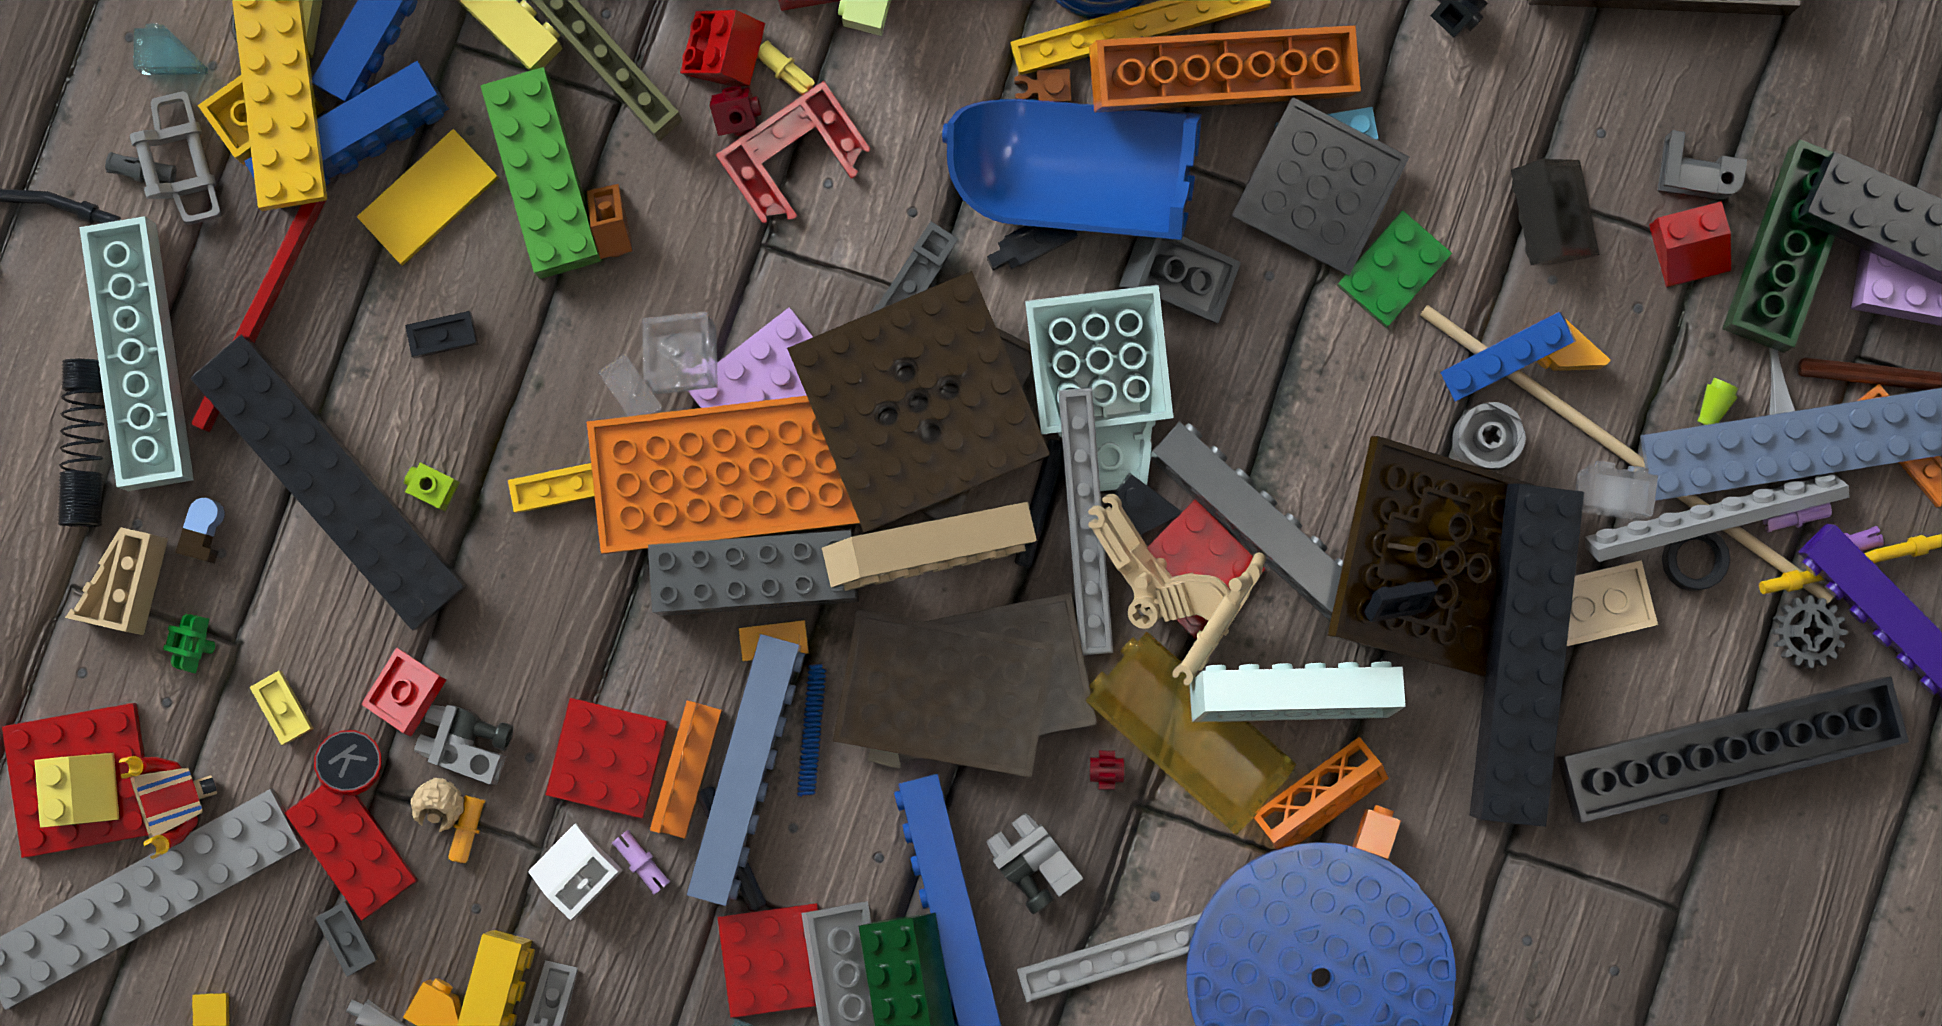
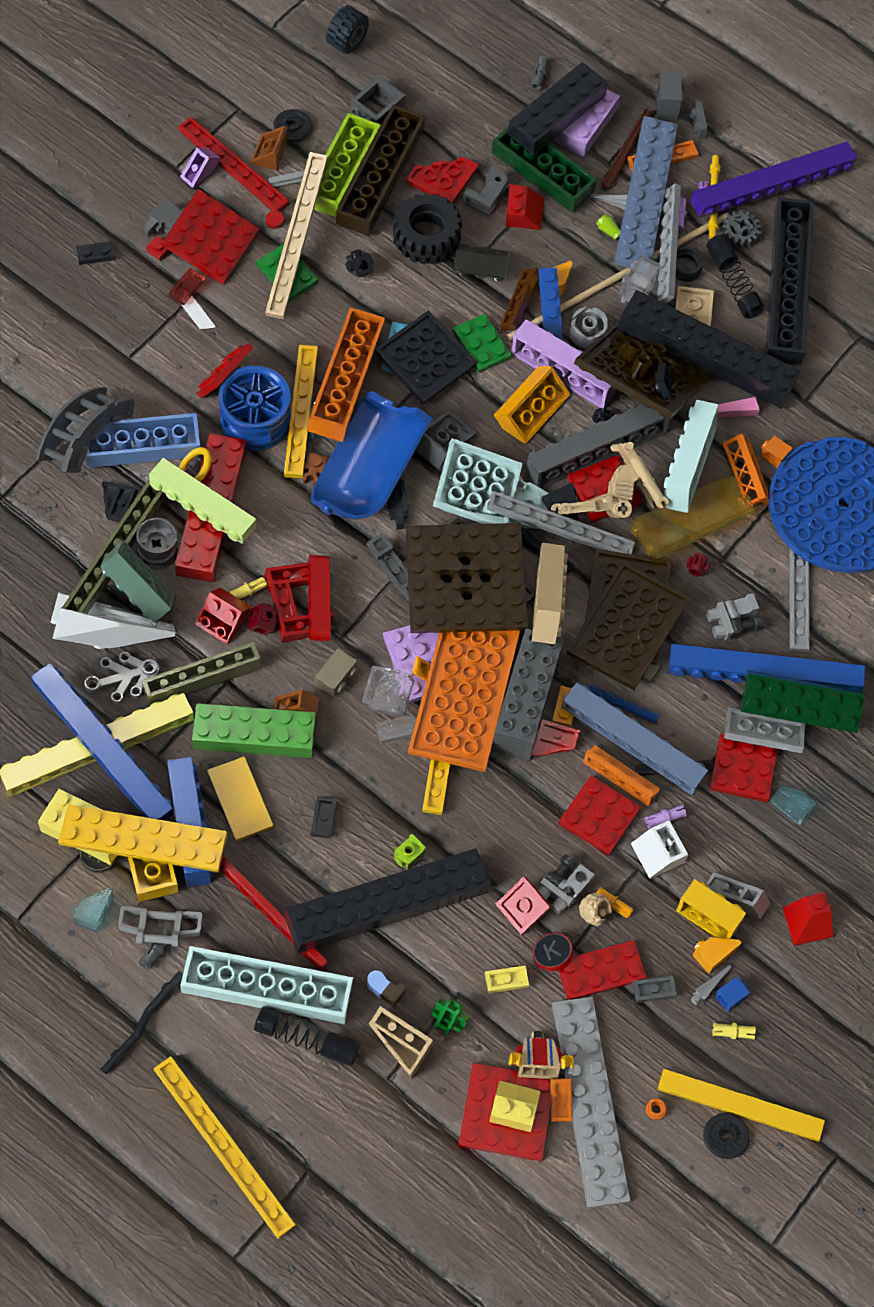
camera: 80 degrees left, 20 degrees down
(120, 855) = (561, 1099): none -> orange plate
(153, 1009) = (658, 1103): none -> orange plate
(689, 260) = (336, 672): none -> dark tan brick
(708, 643) = (554, 739): none -> wing
(738, 390) = (421, 668): none -> light orange slope
(802, 183) = (319, 598): none -> red beam
(1305, 394) = (532, 403): none -> light orange slope
(1328, 517) = (601, 414): none -> black plate
(1406, 384) = (544, 349): none -> lavender brick
(1444, 749) = (738, 408): none -> bright pink piece
(1503, 301) = (519, 299): none -> reddish brown plate
(1599, 60) = (427, 209): none -> black tyre
(1697, 86) = (443, 177): none -> red plate
(1733, 620) = (725, 258): none -> black piece

